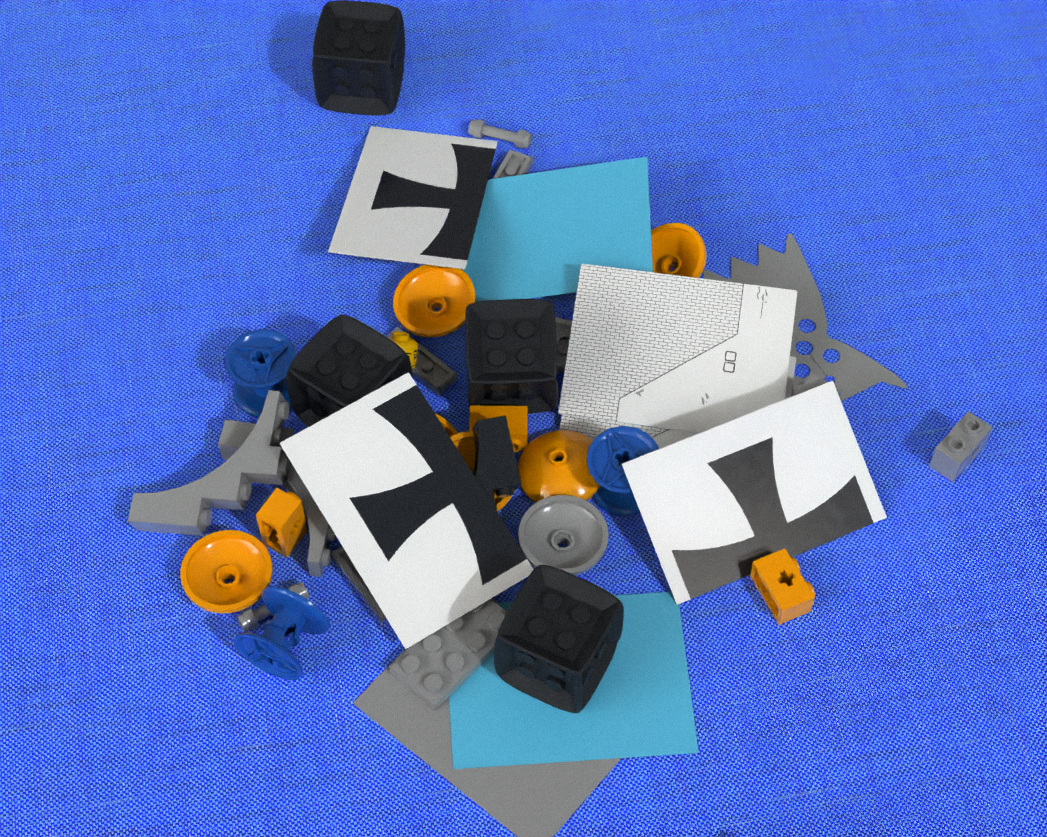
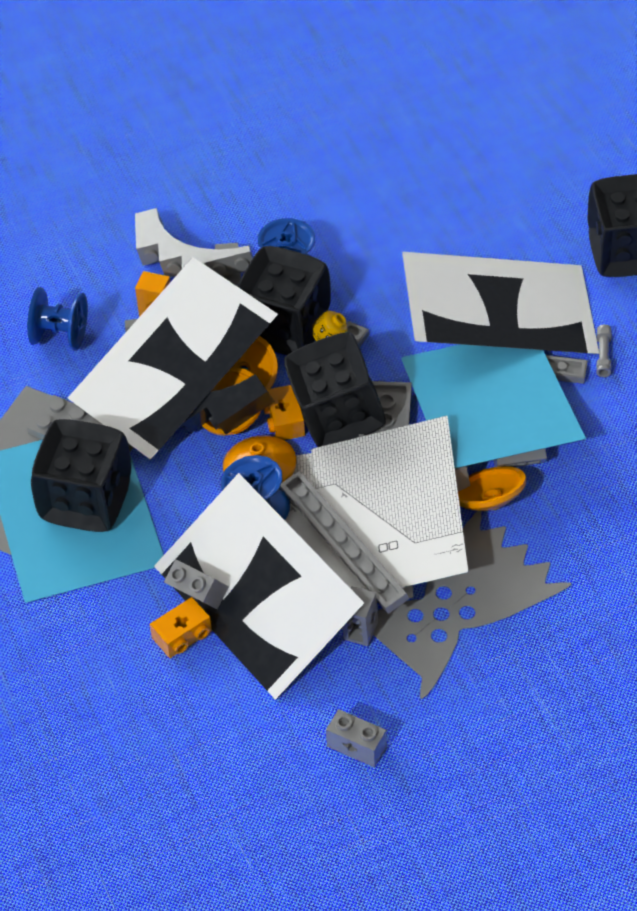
camera: 80 degrees right, 5 degrees down
(225, 557) = (106, 278): light orange dish -> none
(249, 619) = (104, 327): light grey bar -> none
(429, 289) = (390, 341): light orange dish -> none
(564, 521) = (185, 461): light grey dish -> none
(721, 396) = (344, 542): none -> light grey plate
(737, 553) = (196, 584): none -> light grey brick

